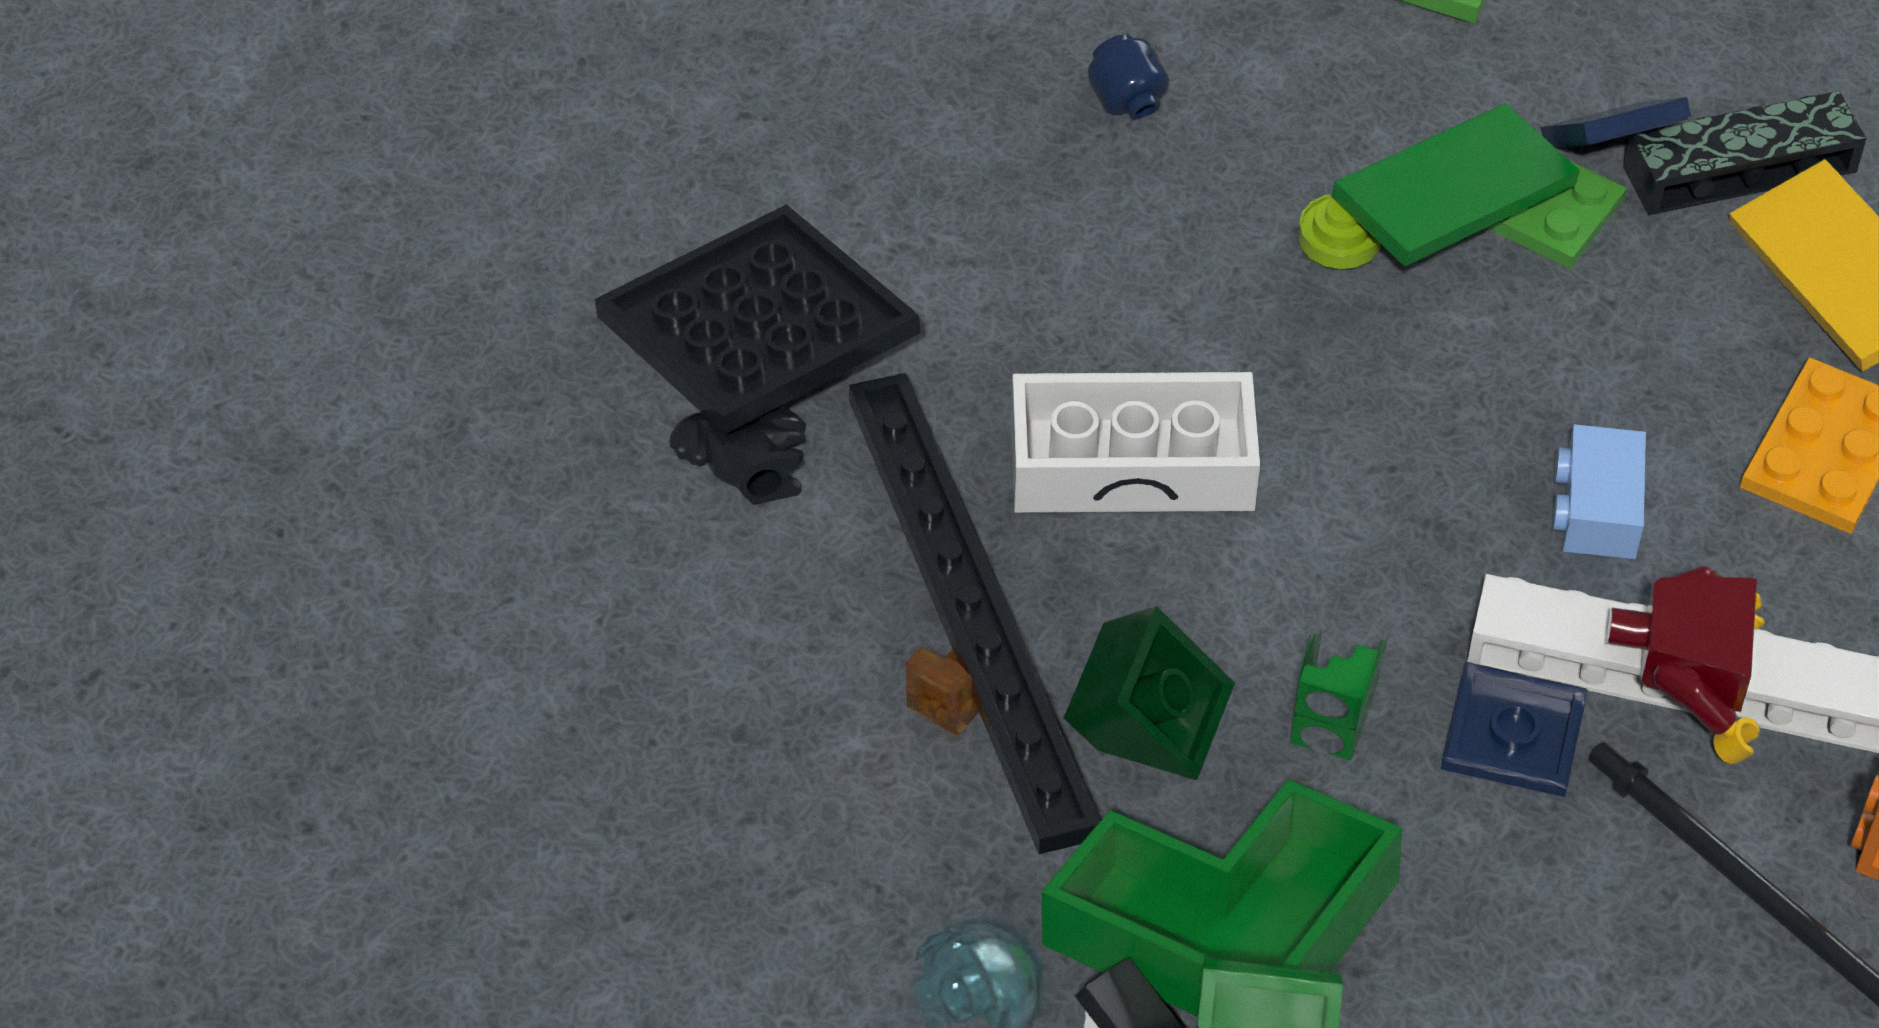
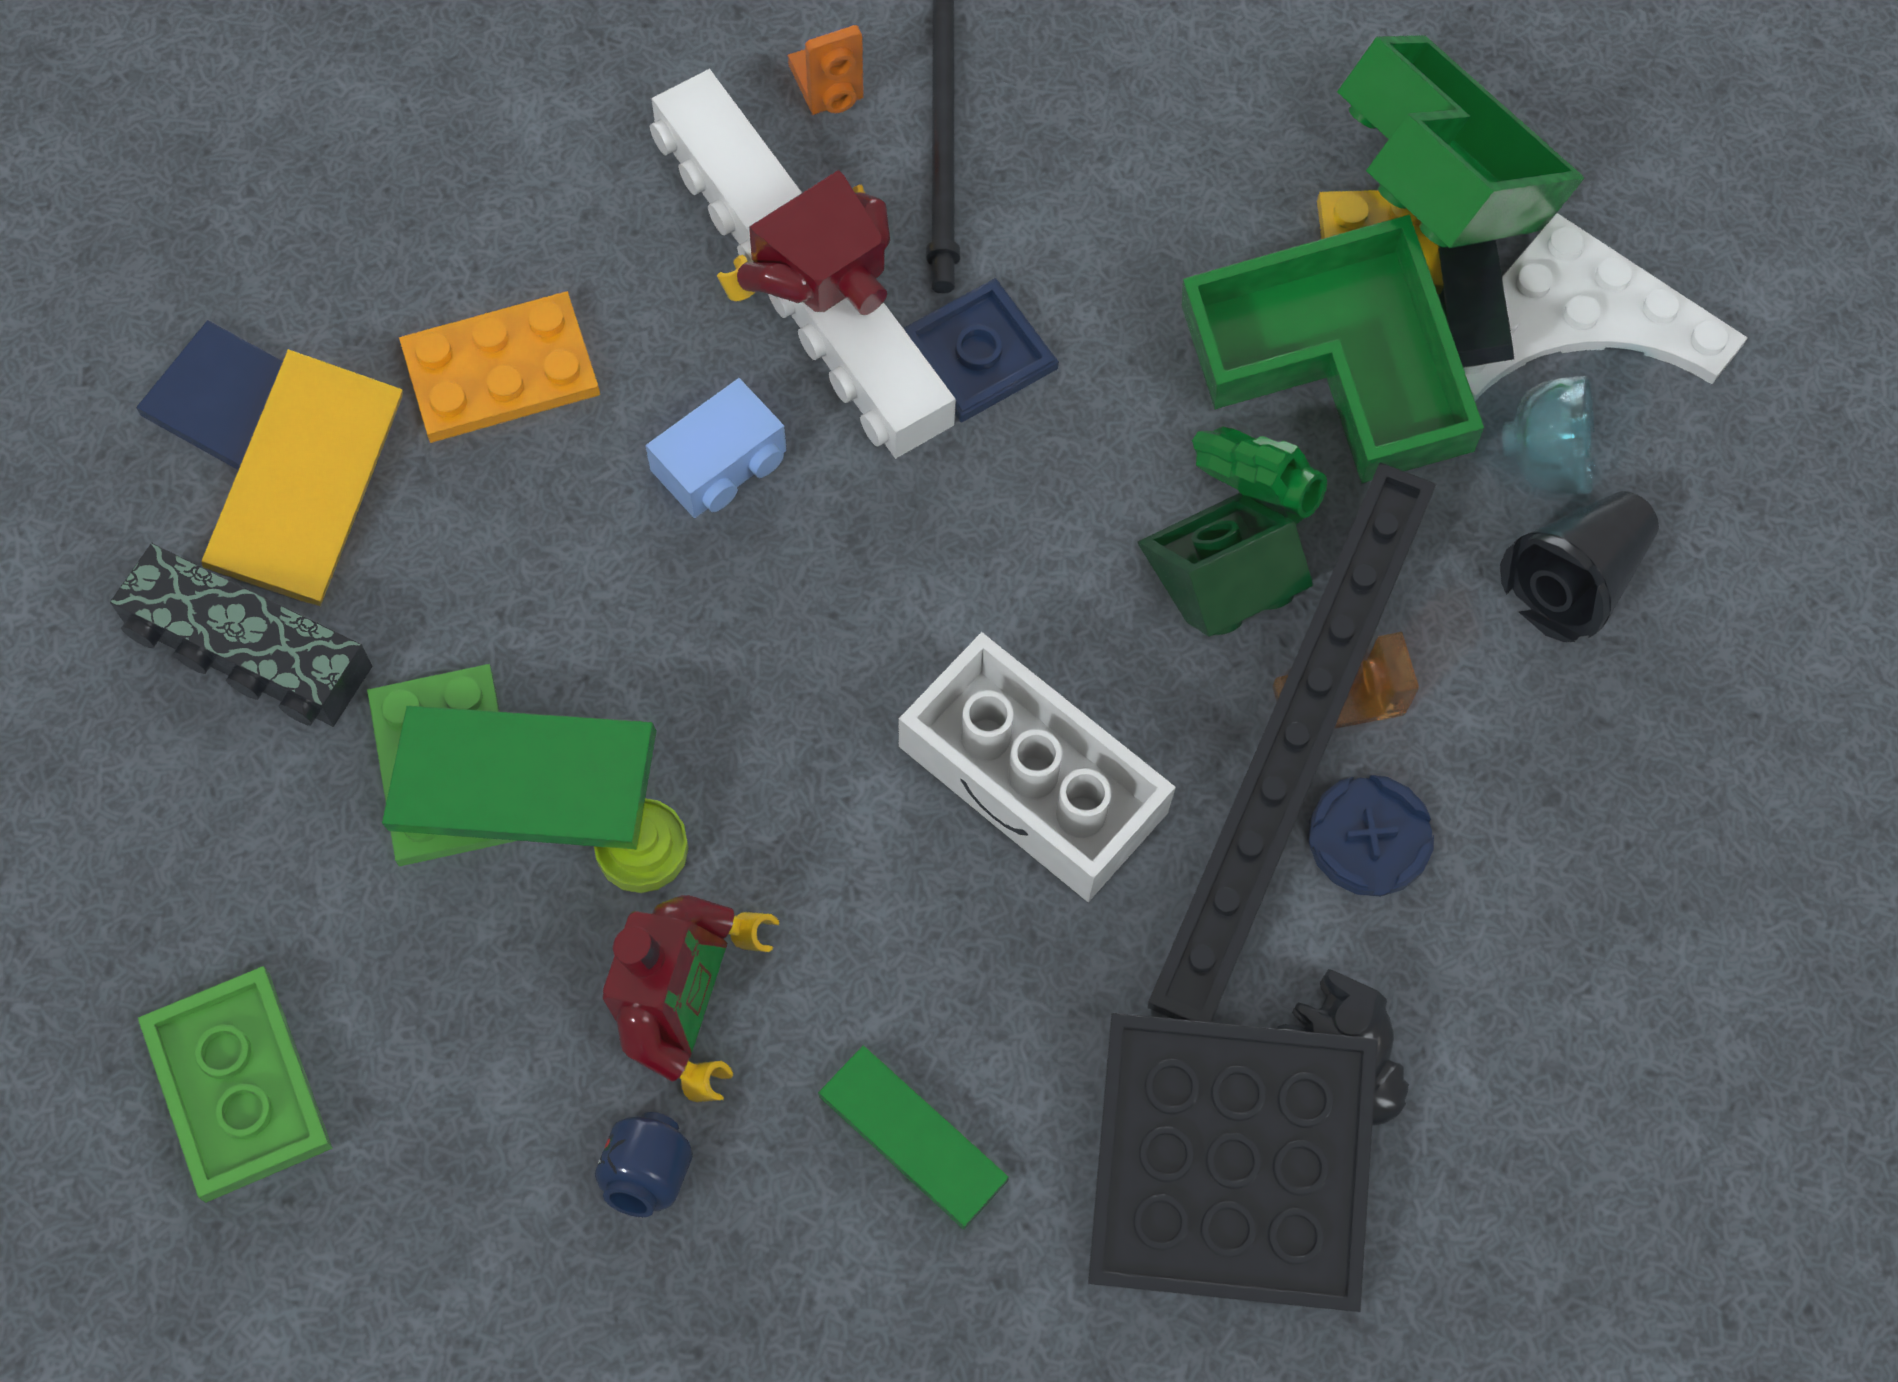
camera: 140 degrees left, 15 degrees up
(853, 603) = (1371, 835): none -> dark blue tile
(868, 896) = (1580, 565): none -> black cone
(981, 213) = (913, 1137): none -> green tile
(1186, 775) = (1262, 470): none -> green rock
(1226, 156) = (665, 980): none -> dark red torso
(1350, 680) = (1089, 412): green piece -> none
(1617, 122) = (313, 734): dark blue tile -> none

